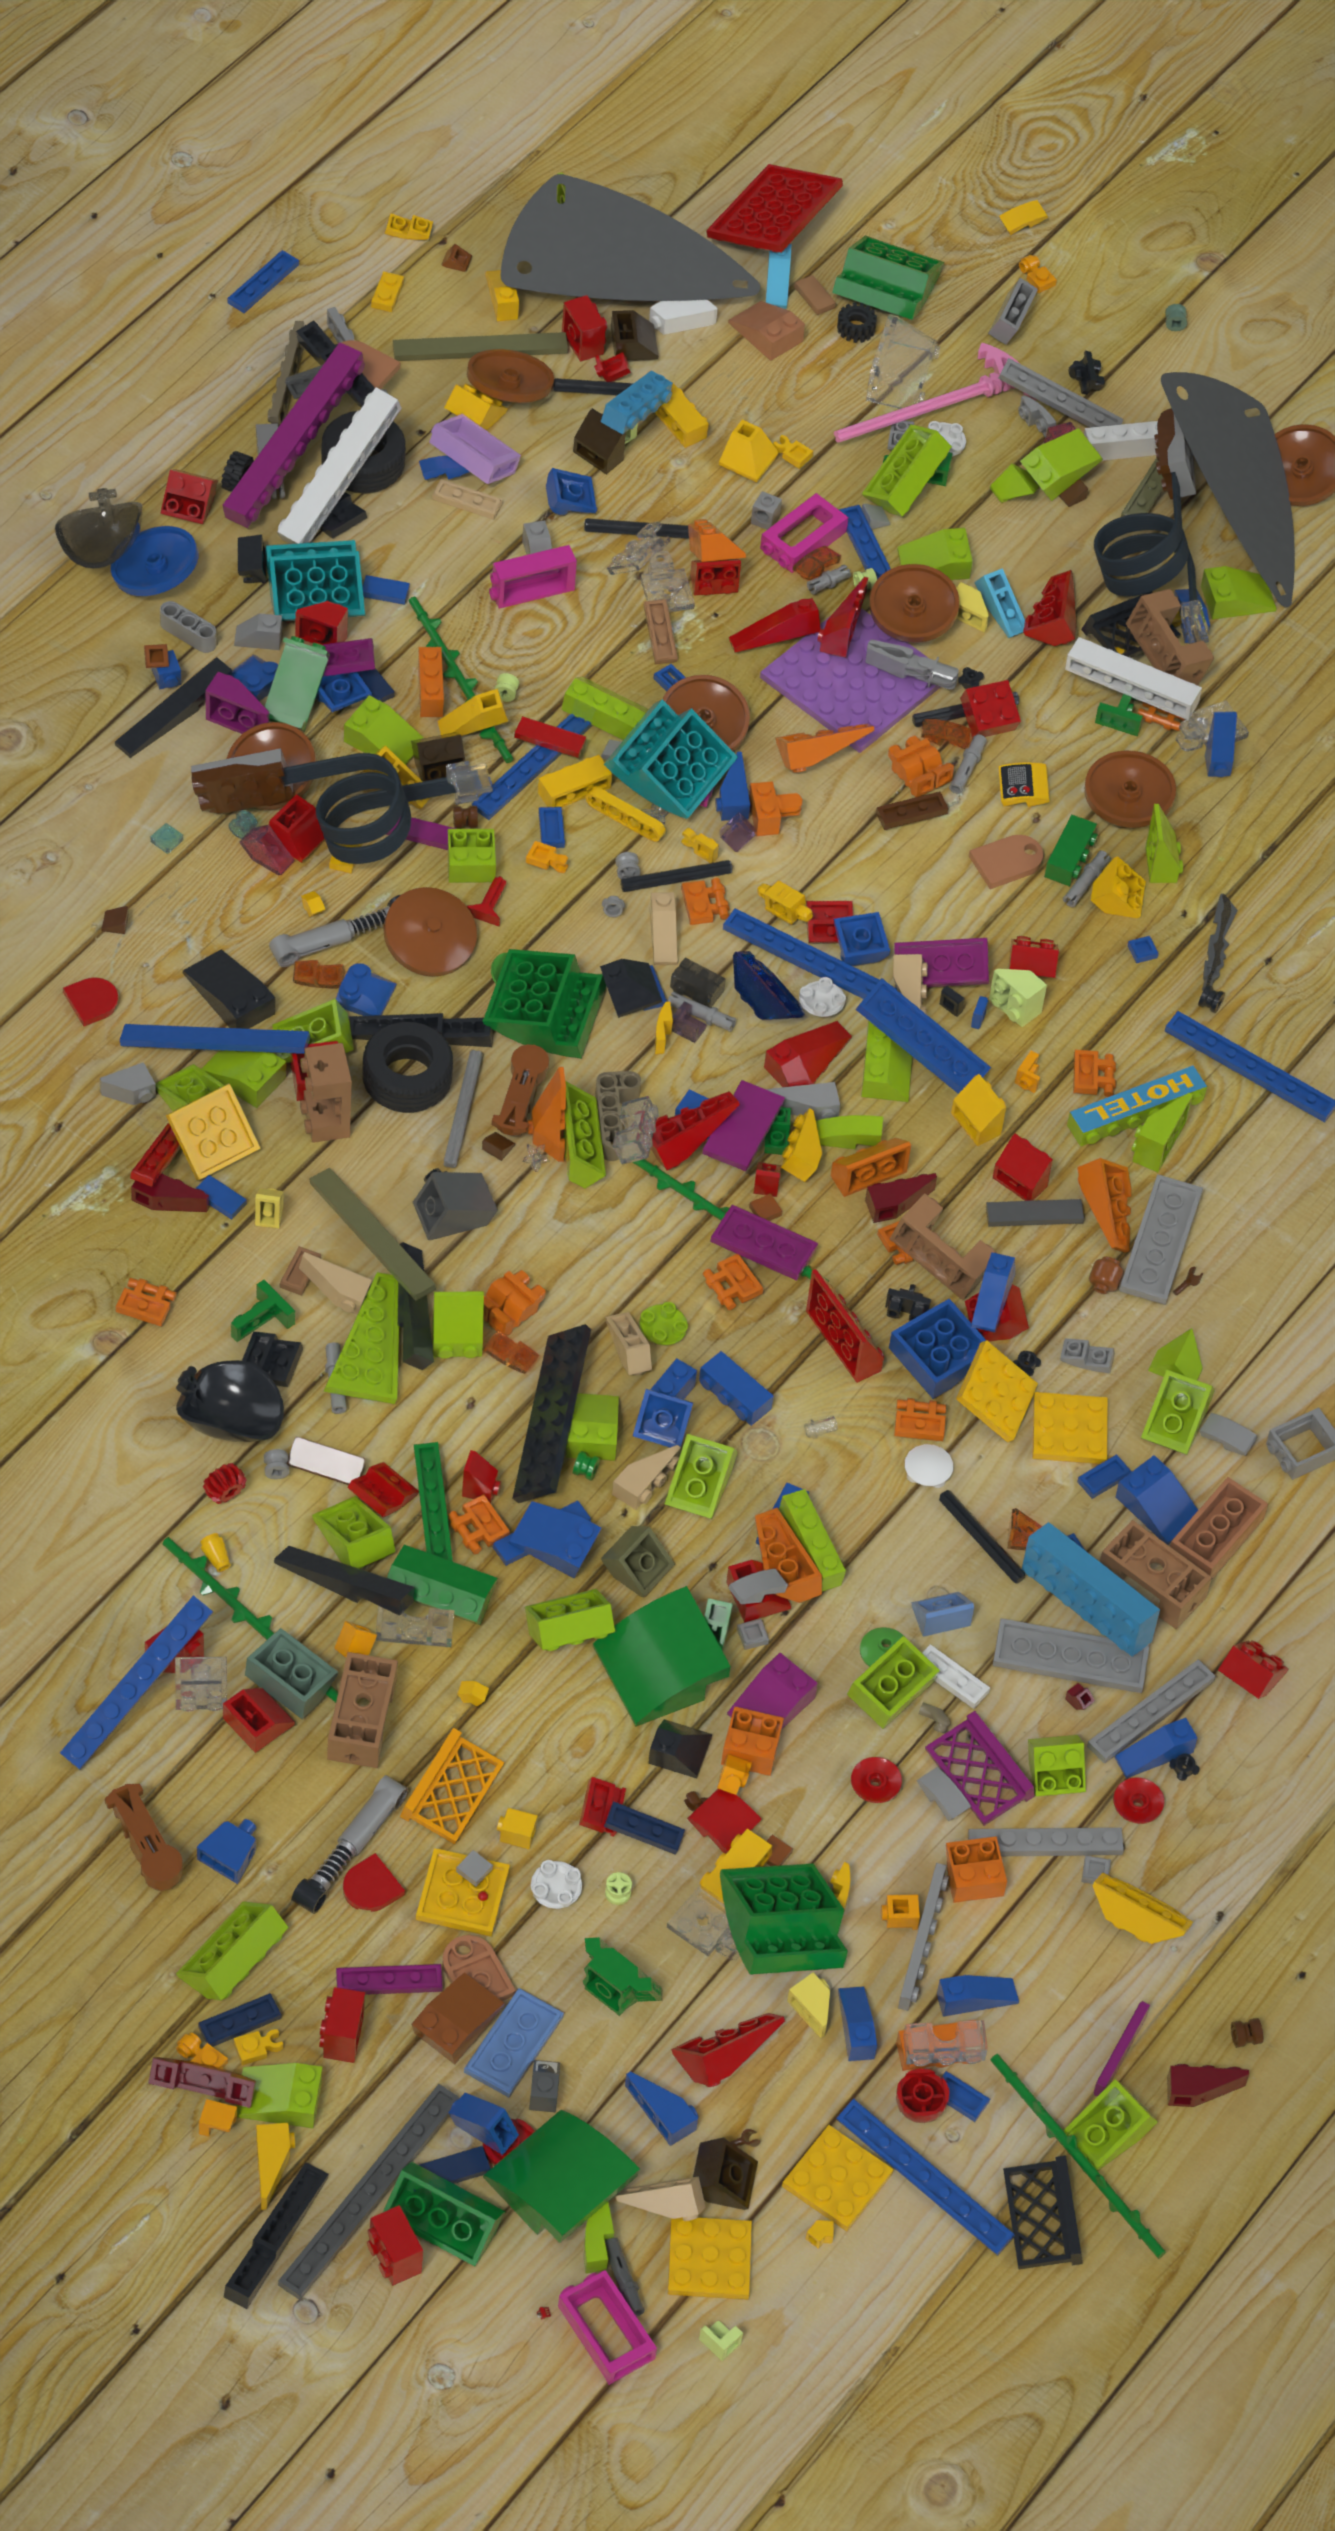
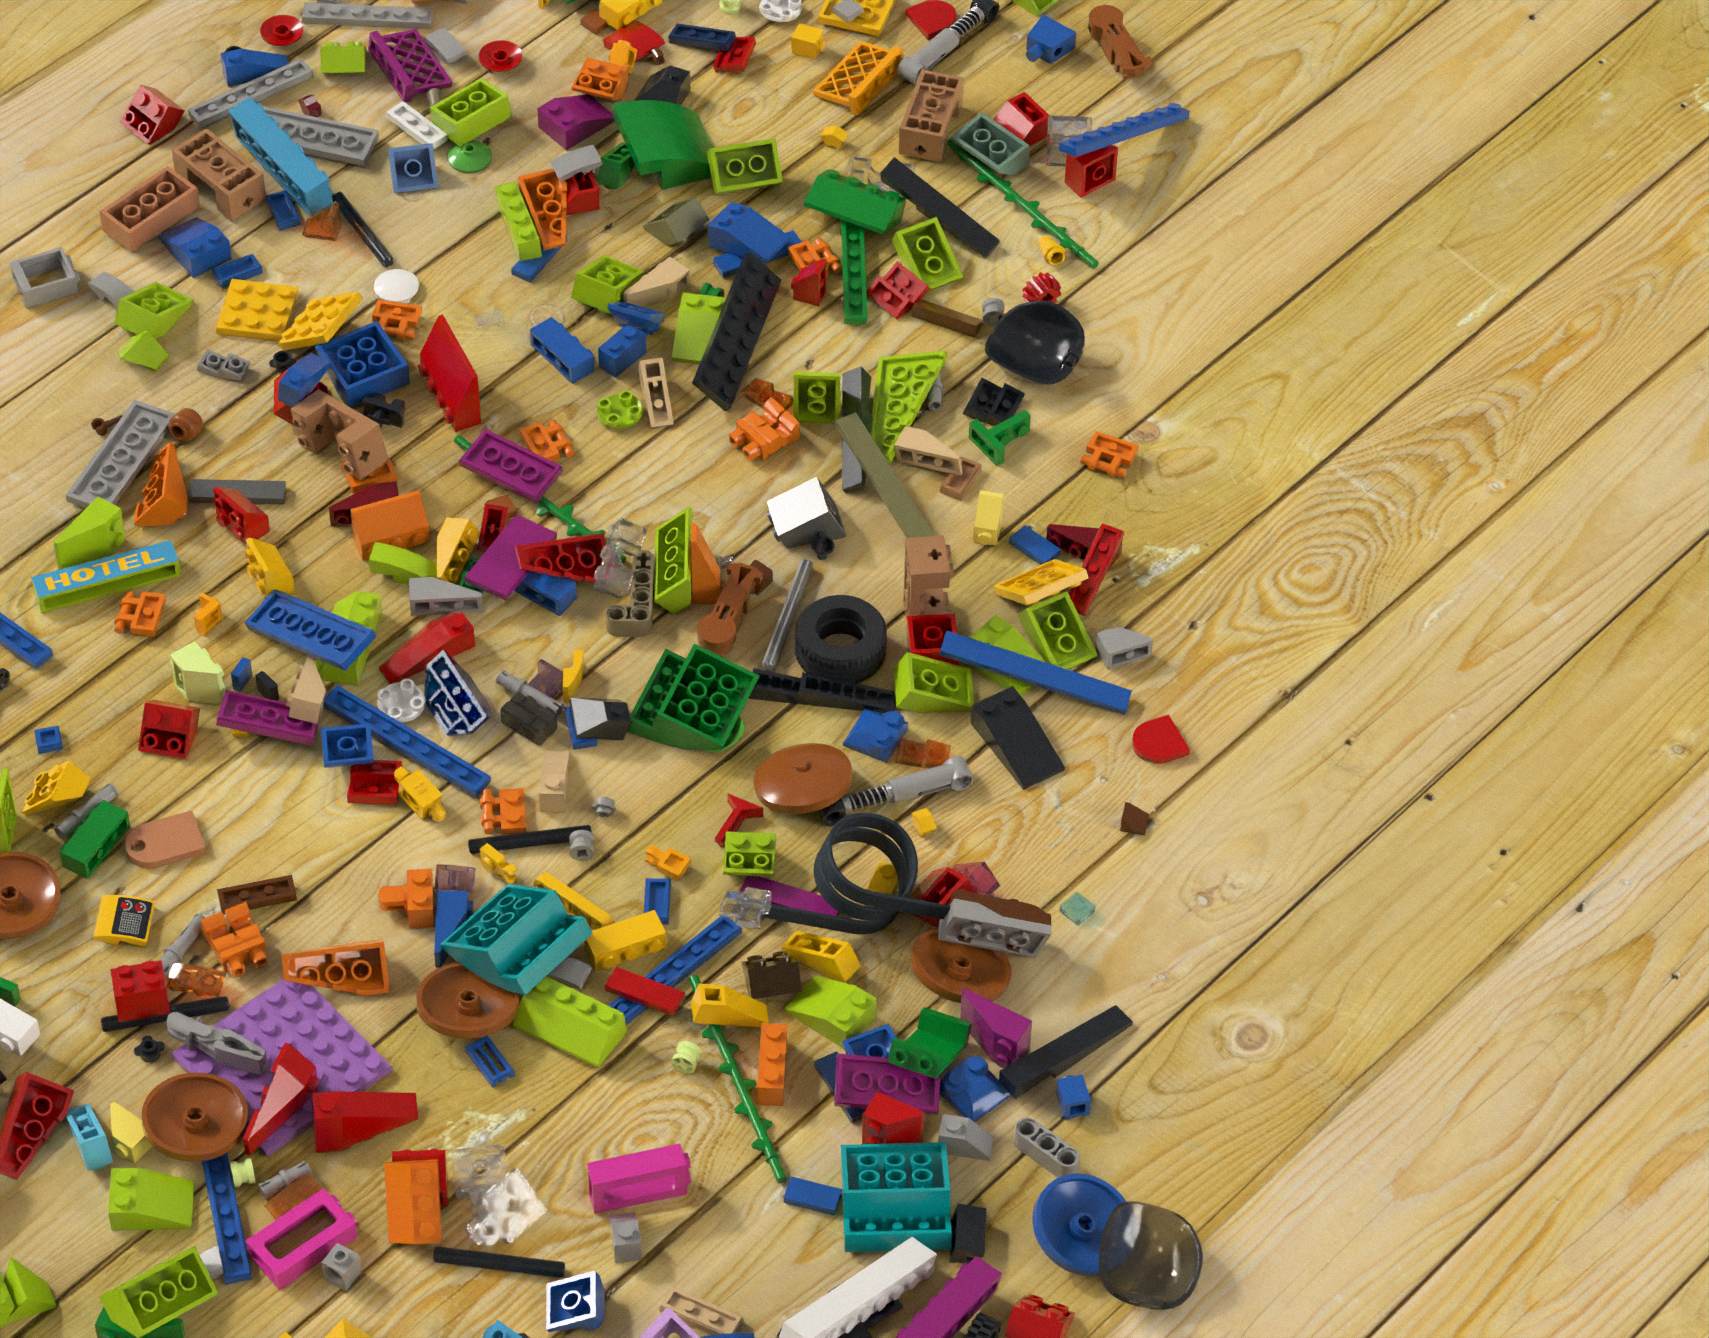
camera: 170 degrees left, 5 degrees down
(156, 656) = (1085, 1093): dark orange slope -> none
(355, 1639) = (934, 174): light orange panel -> none
(660, 631) = (497, 1118): medium nougat tile -> none

